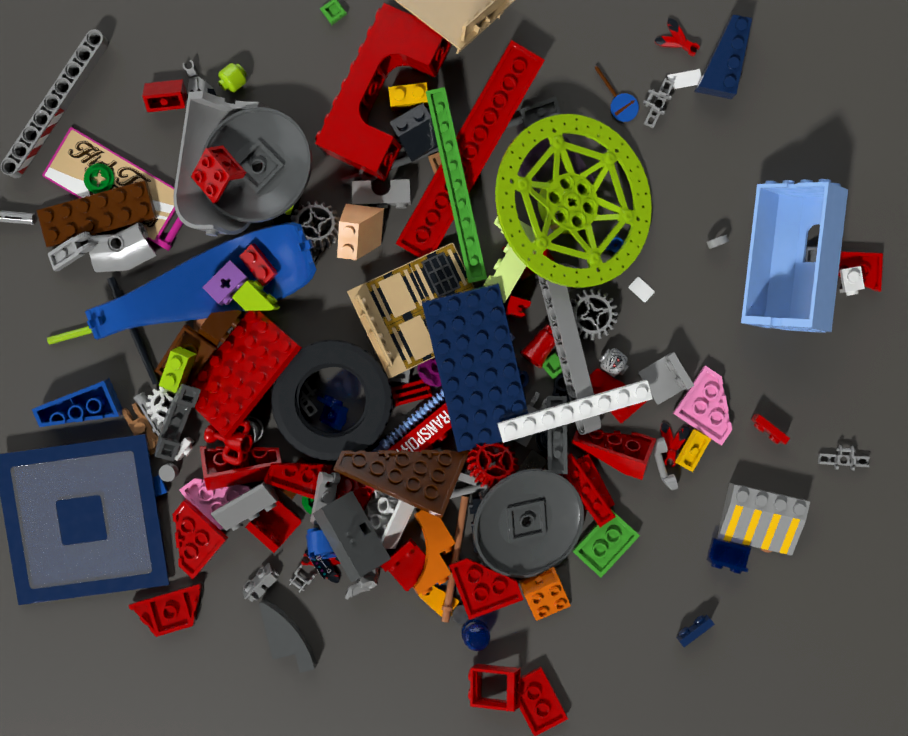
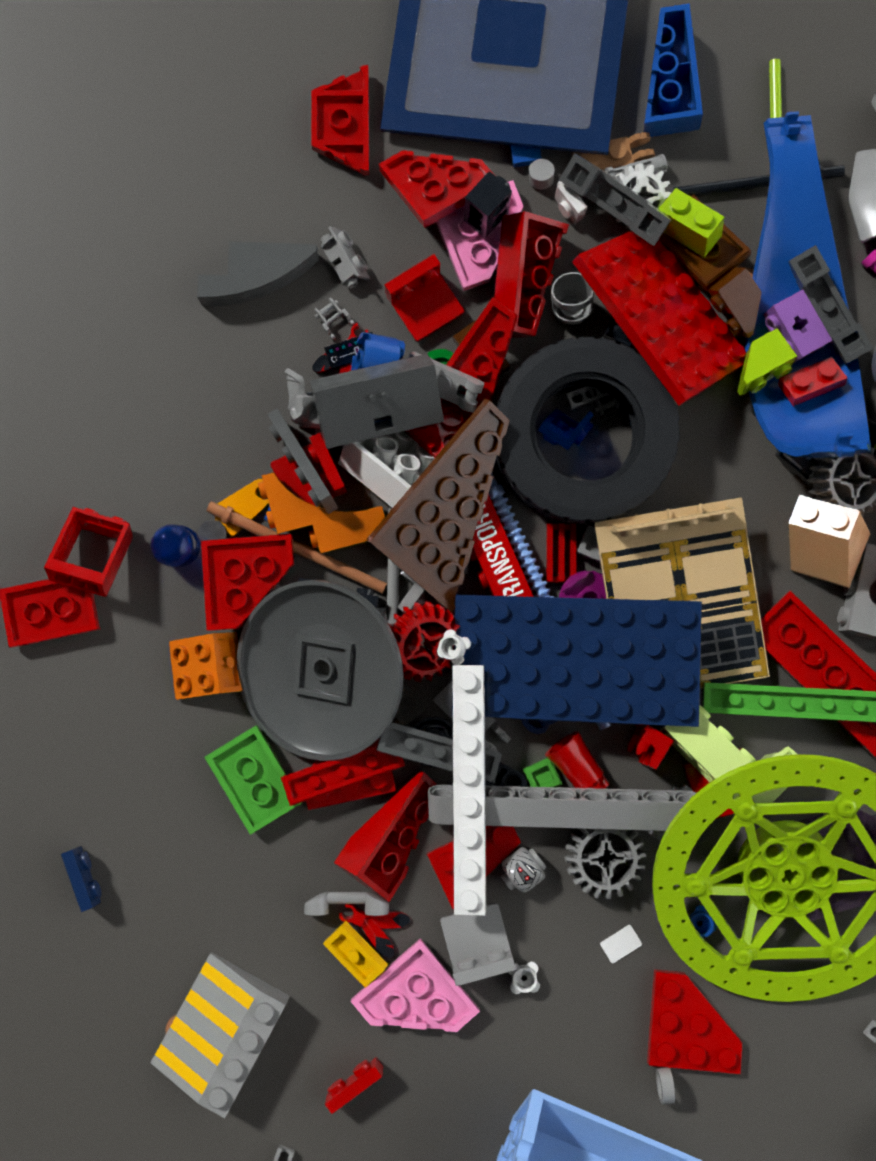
camera: 100 degrees right, 5 degrees down
(203, 502) = (487, 204): none -> black brick
(206, 267) = (813, 277): none -> dark grey slope
(238, 442) = (564, 275): red piece -> none
(246, 506) = (464, 262): light grey slope -> none
(408, 567) = (305, 471): none -> dark grey plate
(495, 448) = (445, 647): none -> white plate
(680, 235) = (687, 1029): none -> red plate
(683, 343) = (530, 984): none -> white plate
(728, 555) = (180, 964): clear blue bracket -> none

